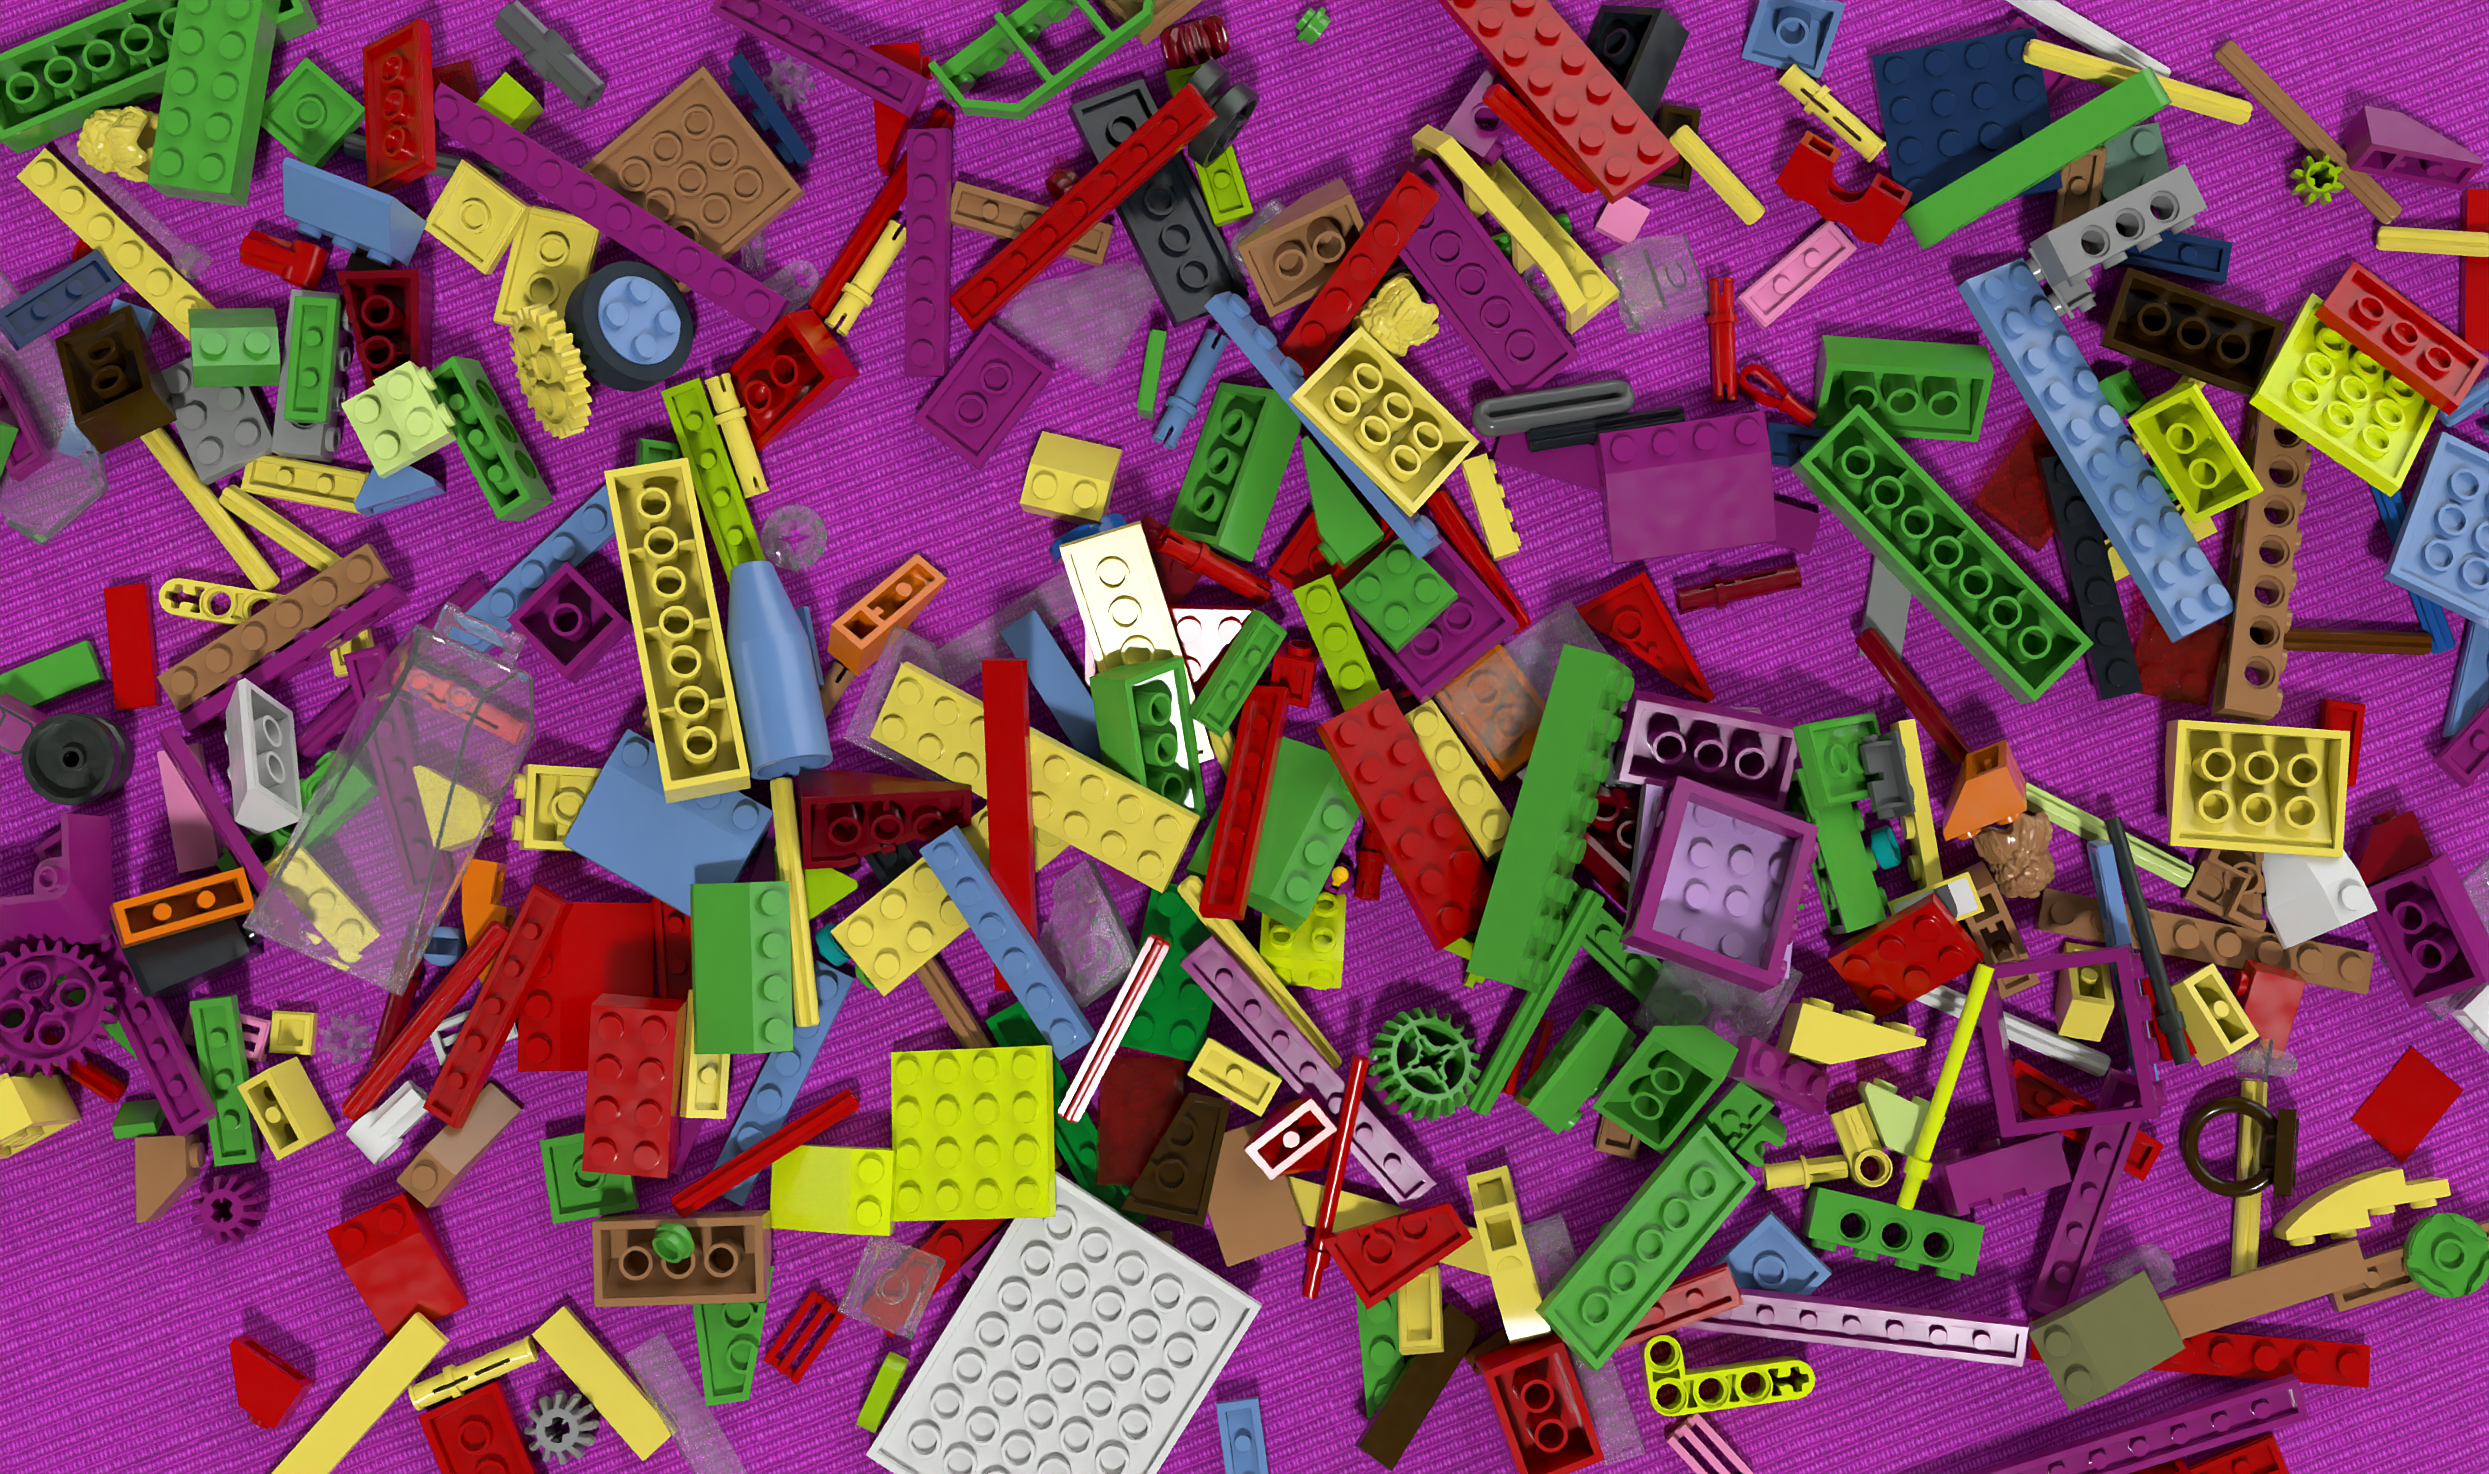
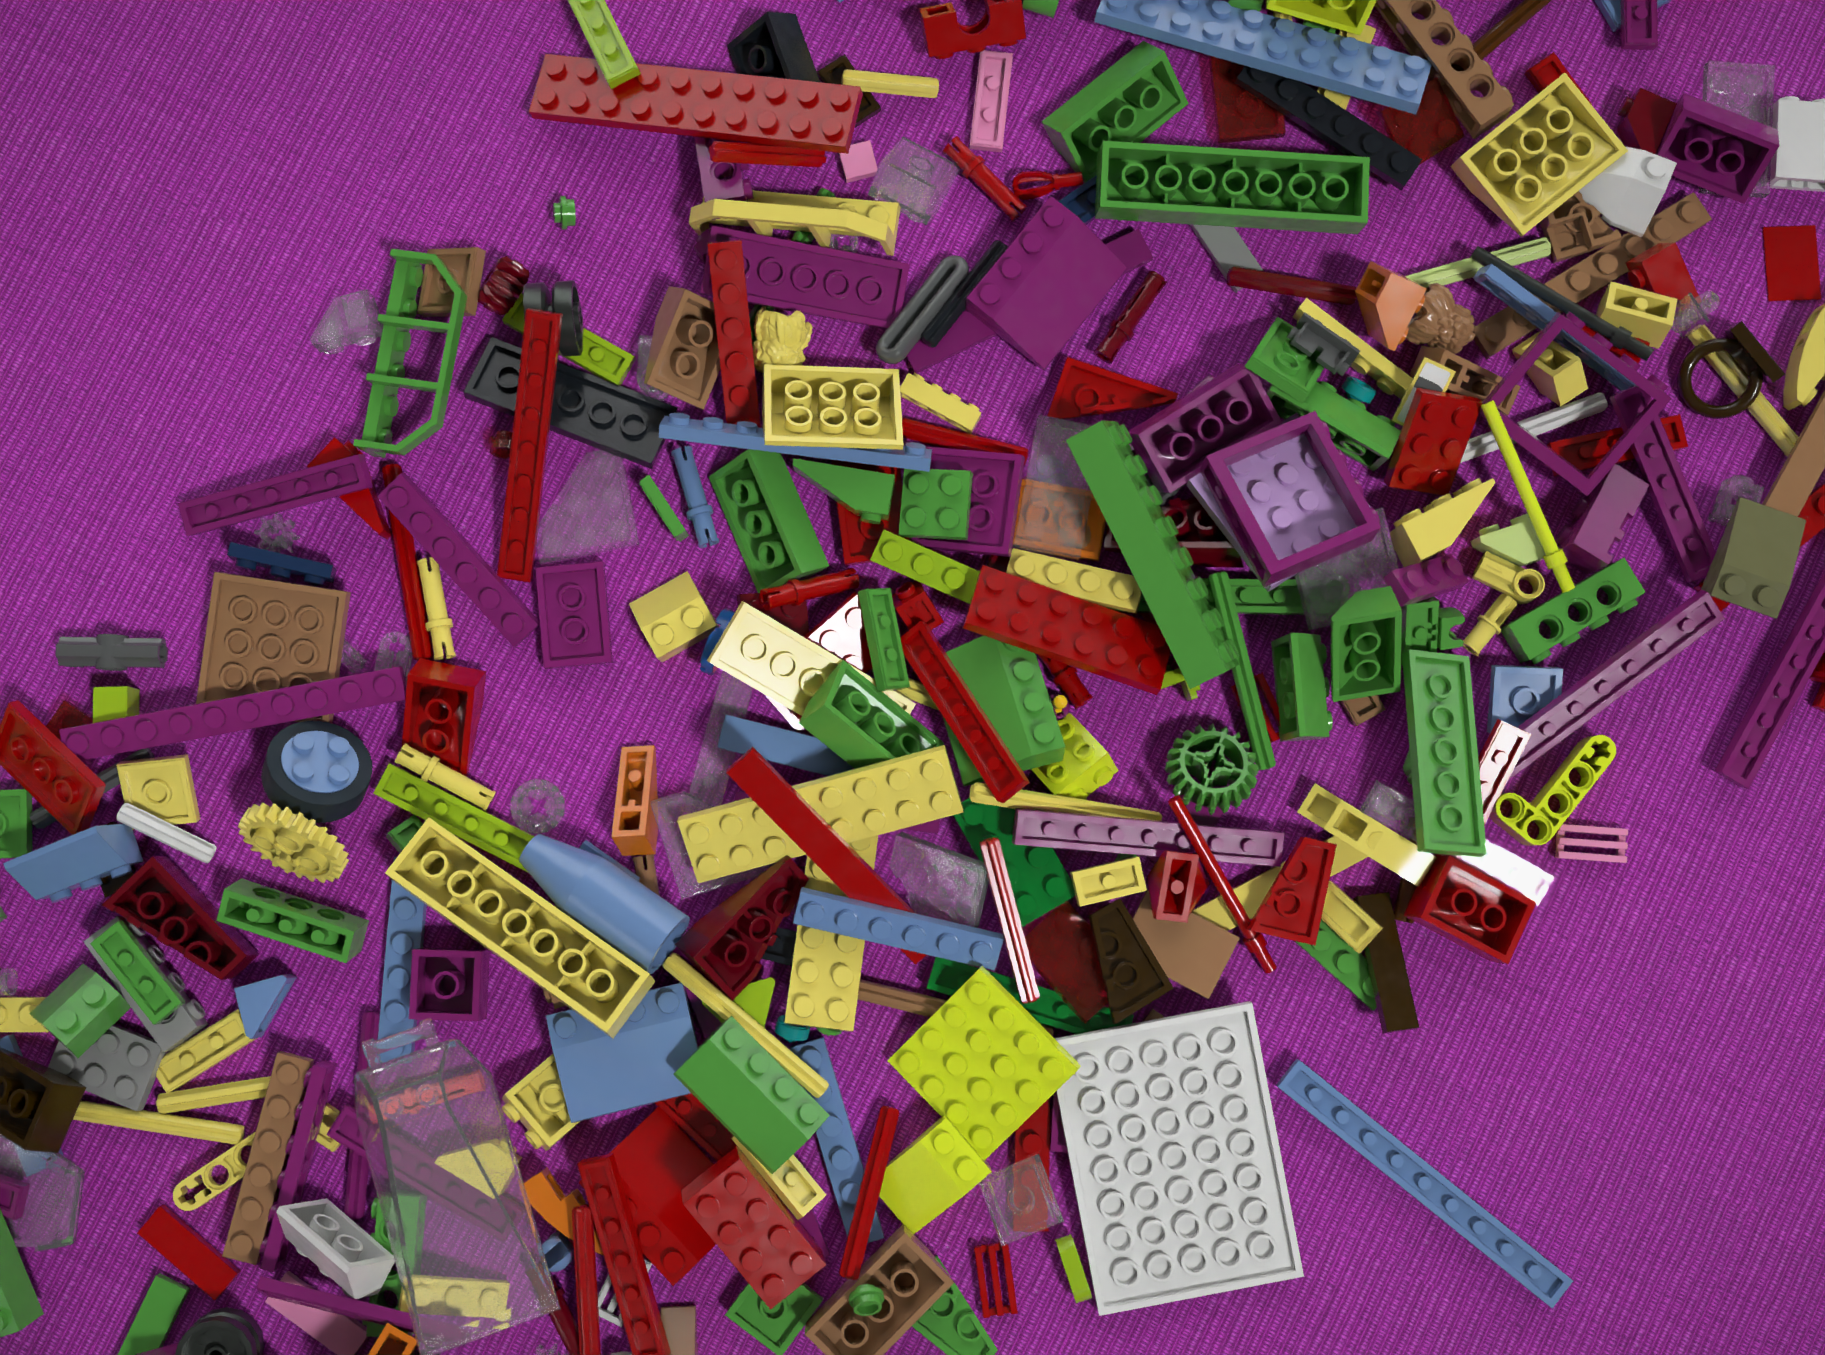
camera: 45 degrees left, 0 degrees up
(294, 262) = (70, 924): red piece -> none
(400, 419) = (227, 958): yellowish green plate -> none
(449, 259) = (166, 833): none -> white axle
(546, 262) = (228, 780): light yellow tile -> none
(1009, 216) = (489, 492): medium nougat plate -> none

